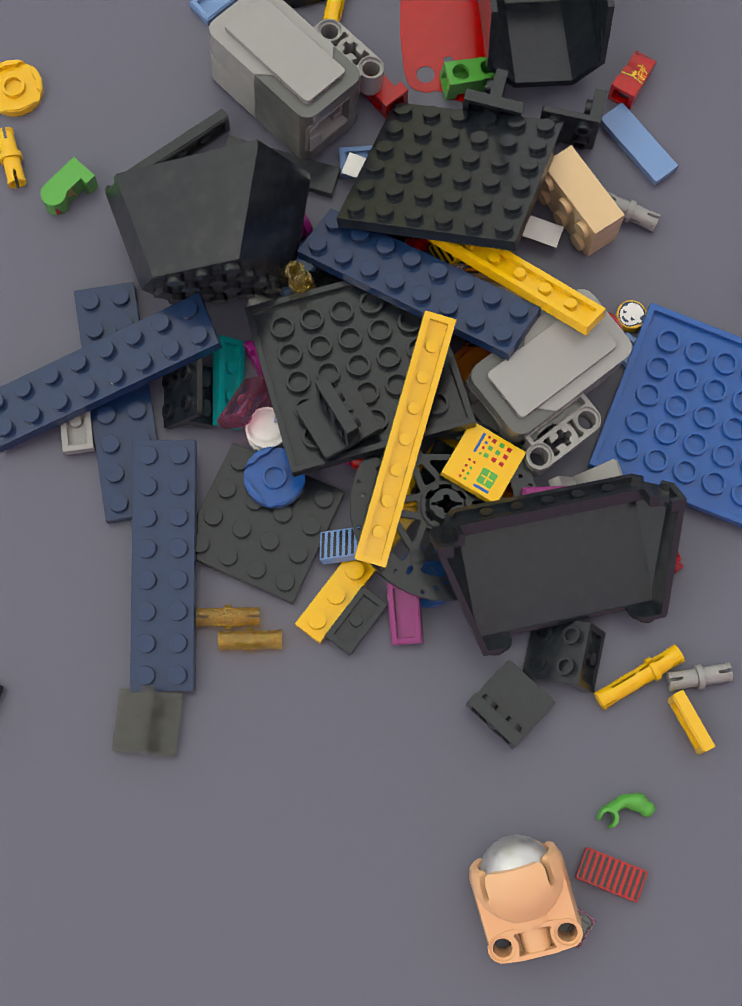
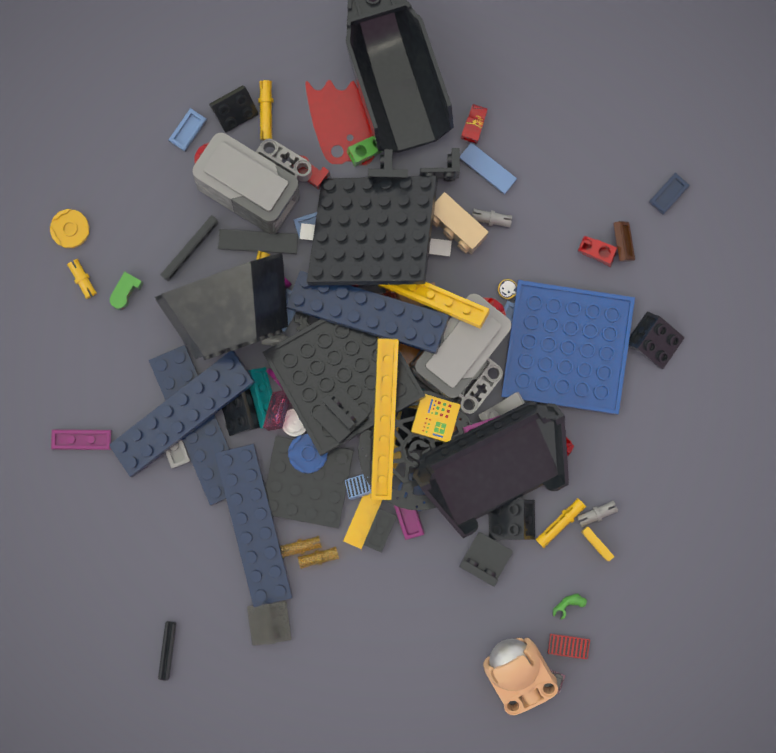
camera: 10 degrees left, 10 degrees up
(298, 277) = (293, 322): clear yellow pin -> none

